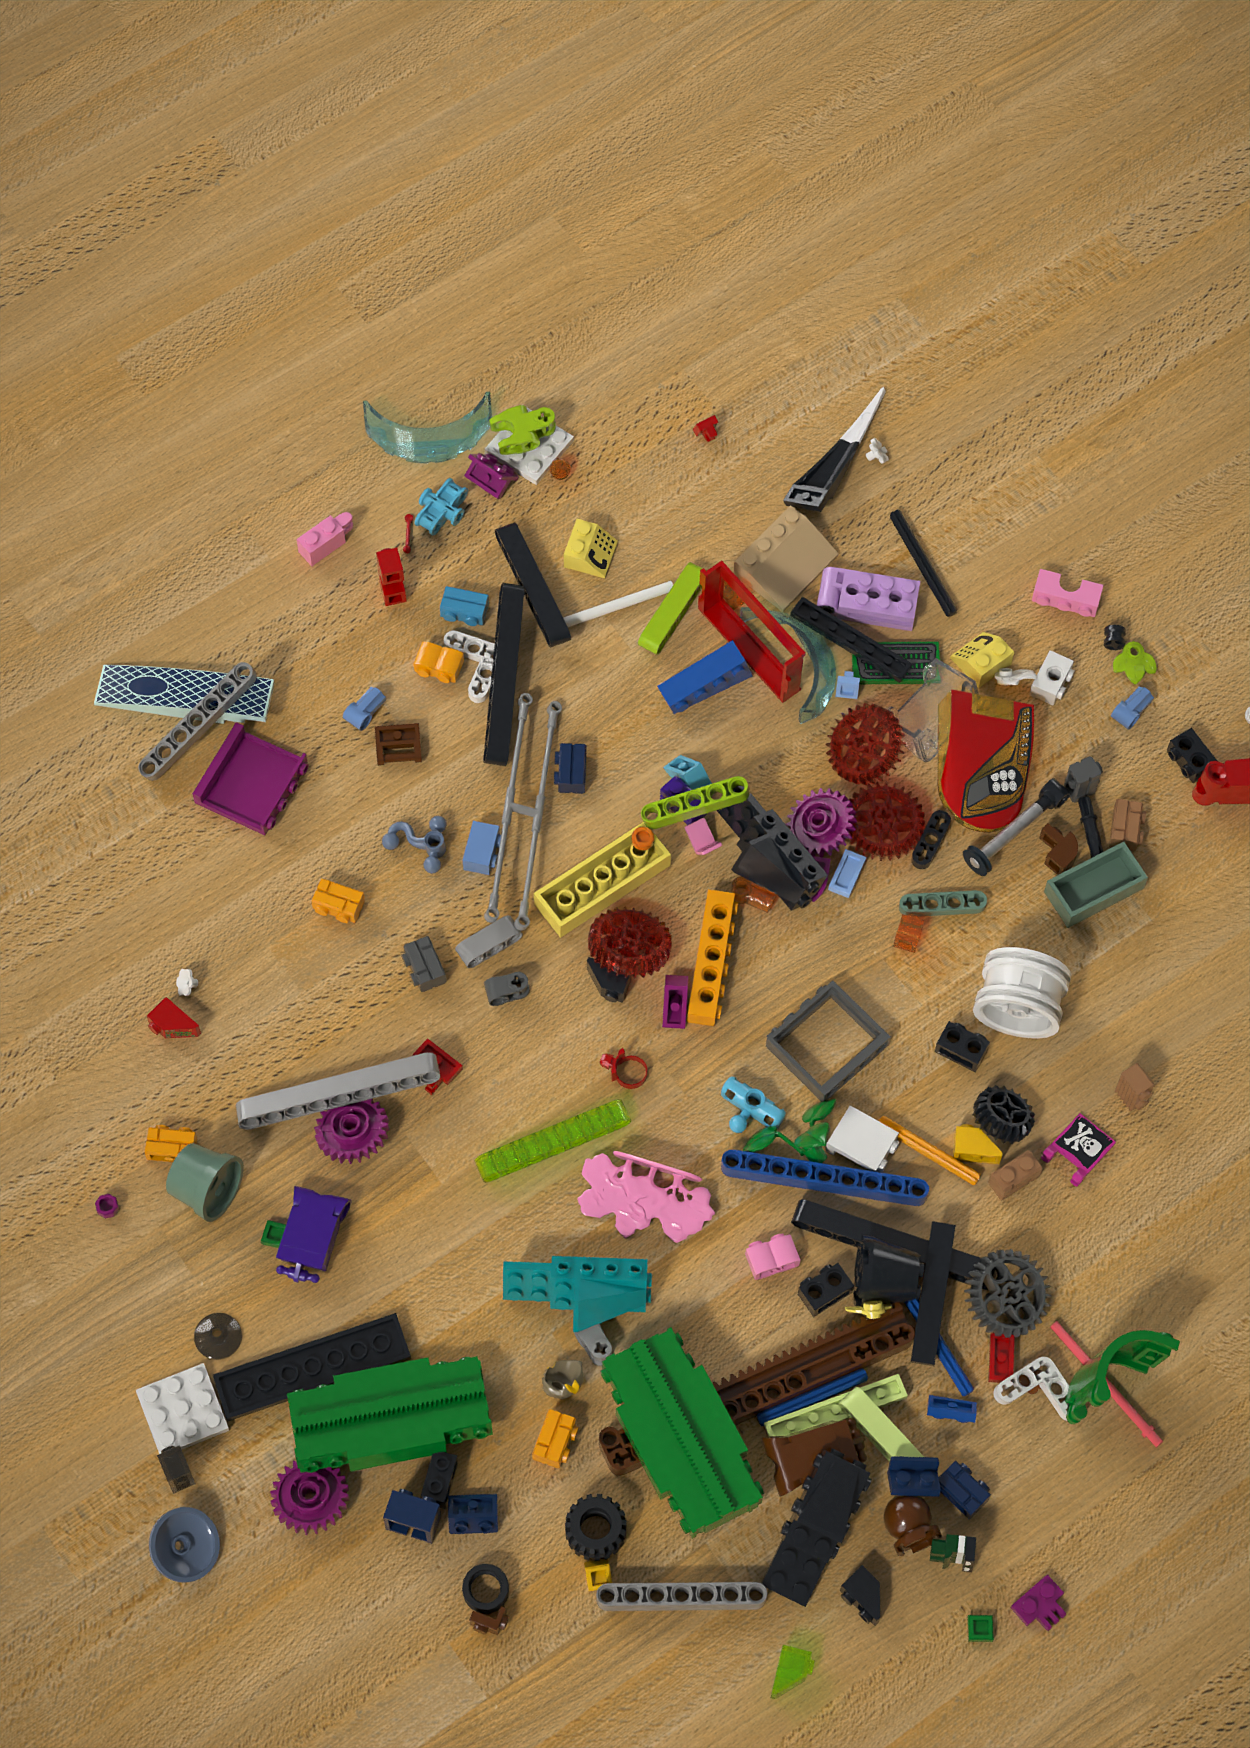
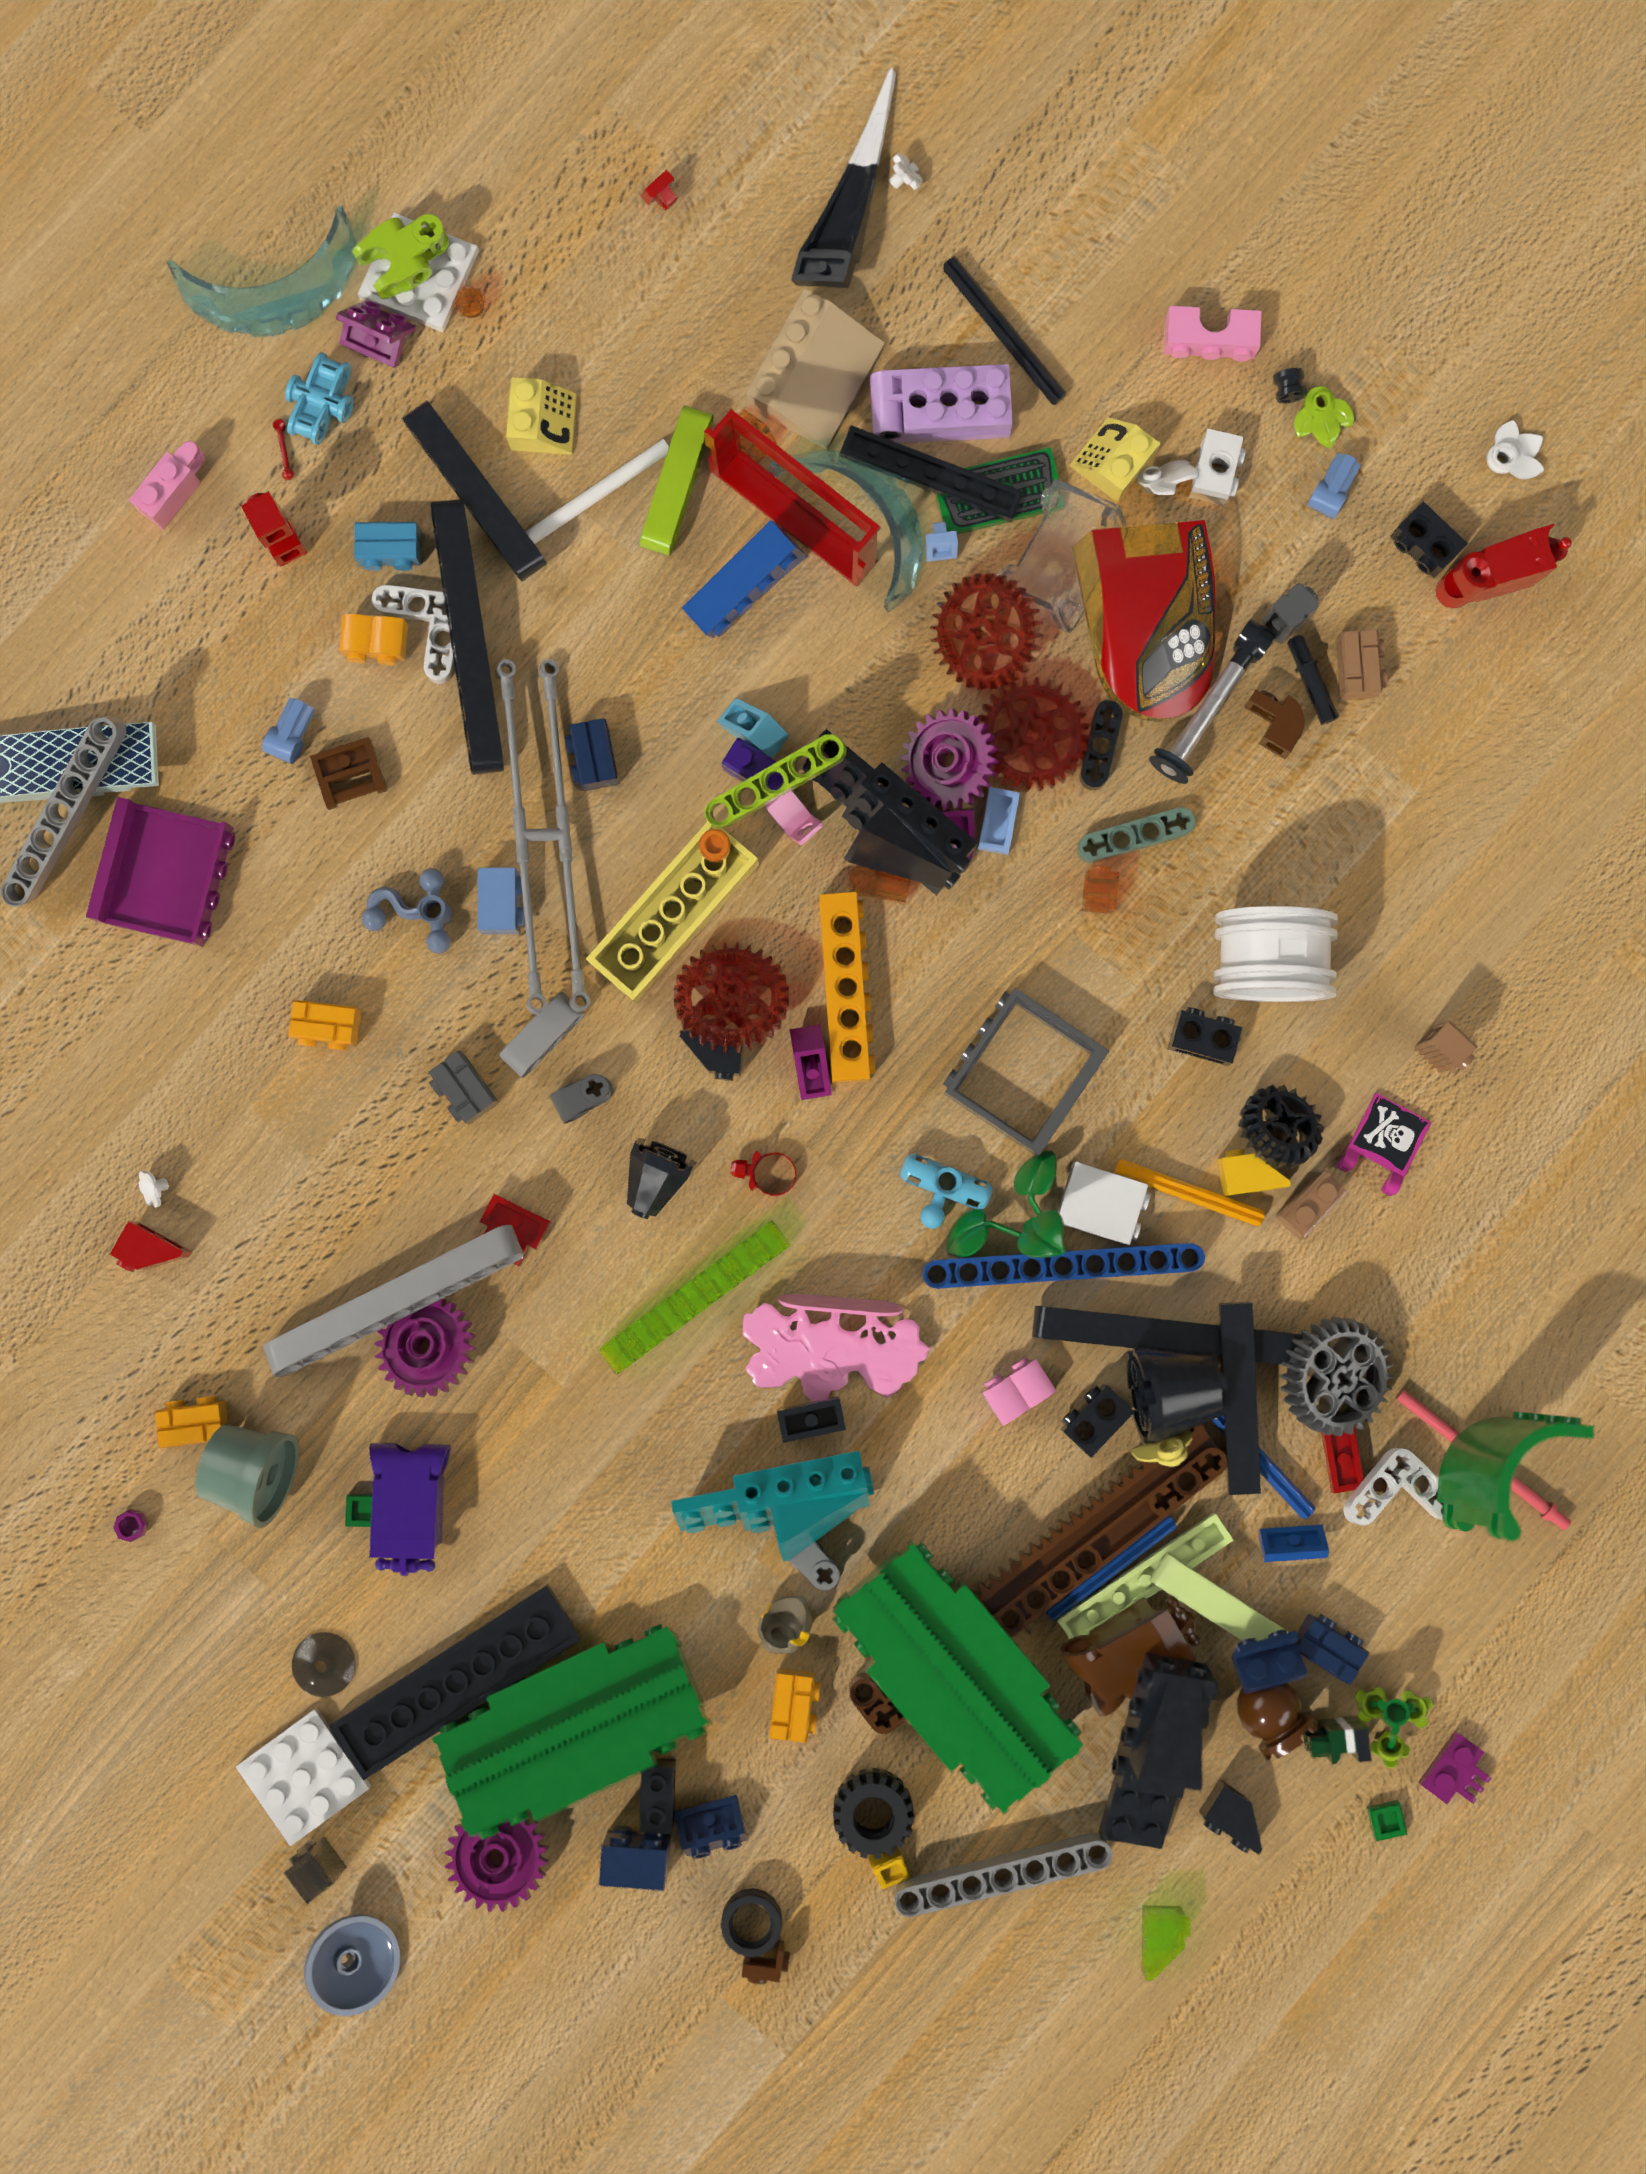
camera: 10 degrees left, 20 degrees up
(545, 1051) = (655, 1176): none -> black cone
(617, 1239) = (811, 1419): none -> black brick
(997, 1537) = (1395, 1715): none -> lime plant
(1095, 884) = (1337, 764): sand green piece -> none

